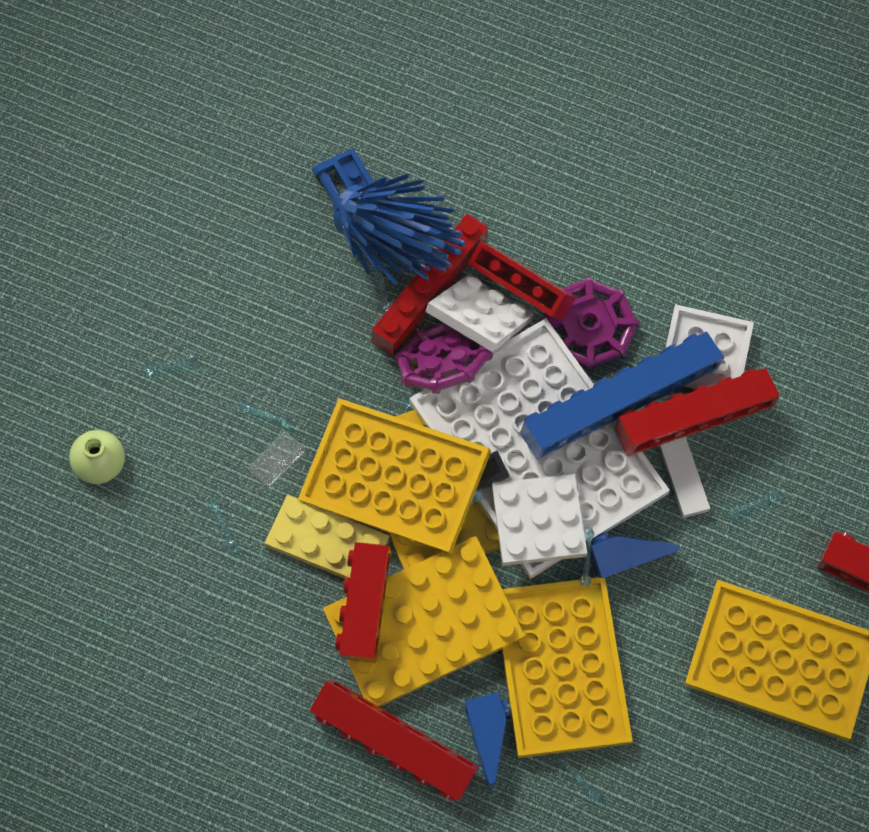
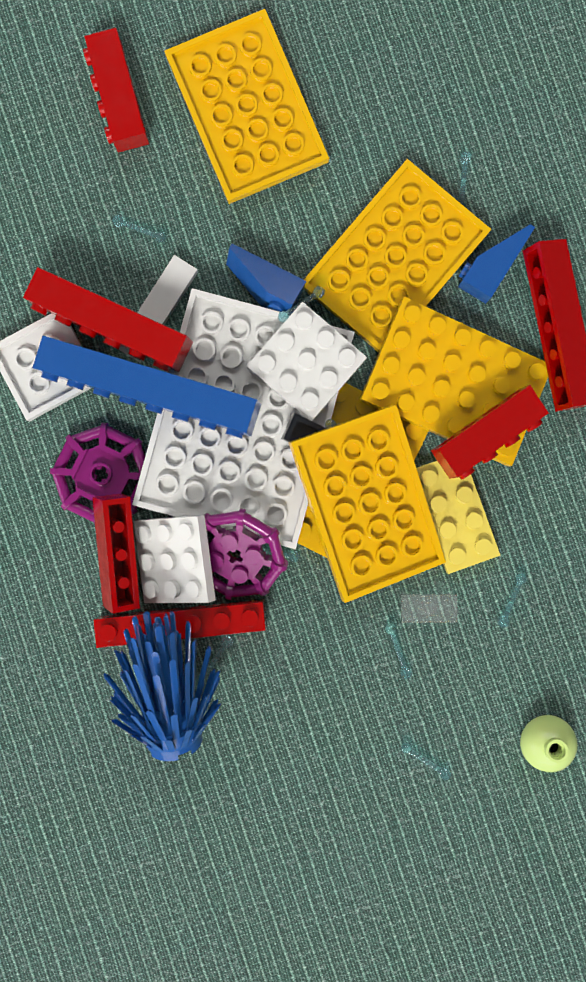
camera: 125 degrees left, 20 degrees up
(348, 169) = (140, 774): blue plate -> none

